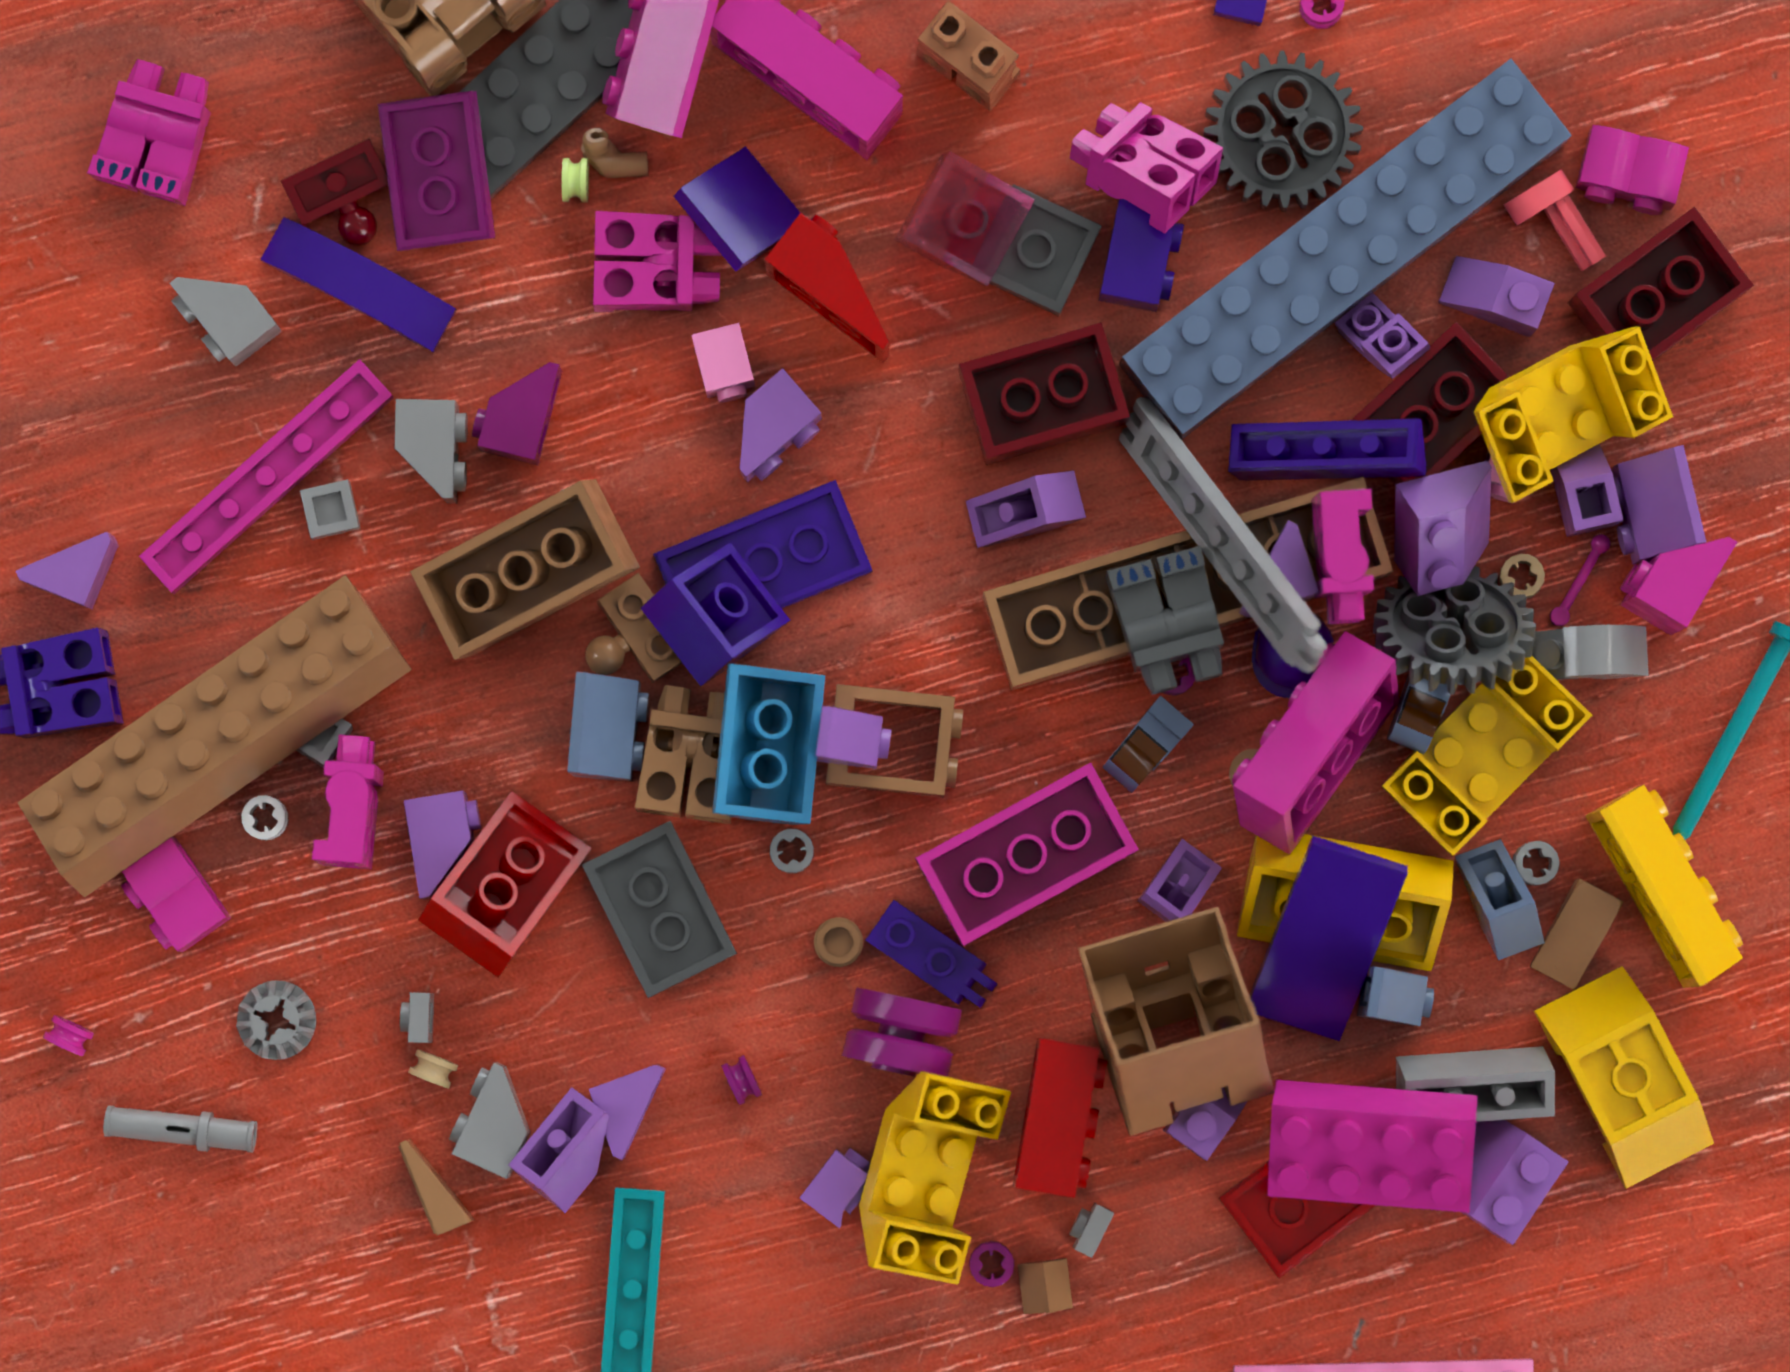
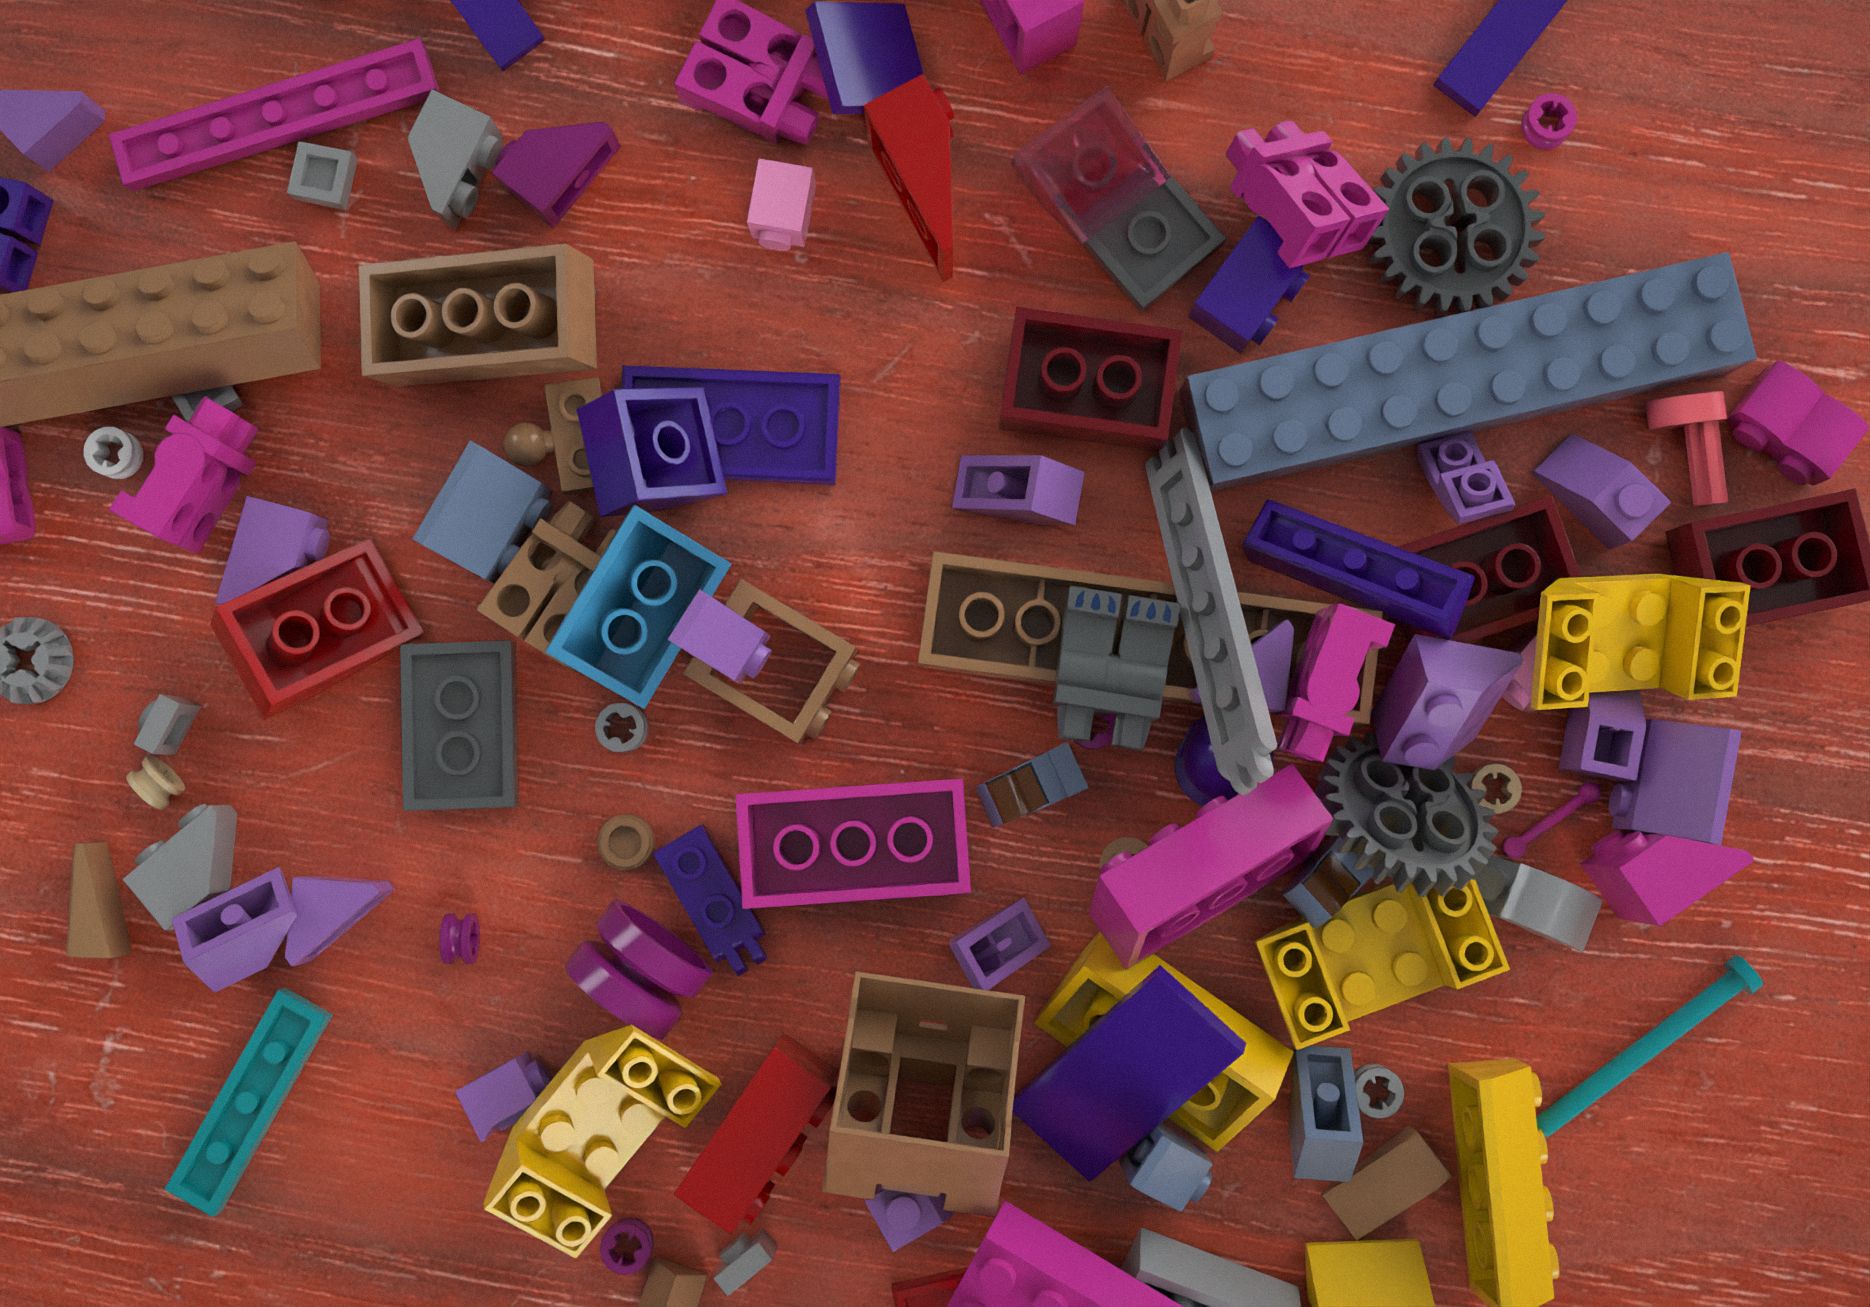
camera: 30 degrees right, 0 degrees up
(774, 421) = (802, 288): medium lavender slope -> none

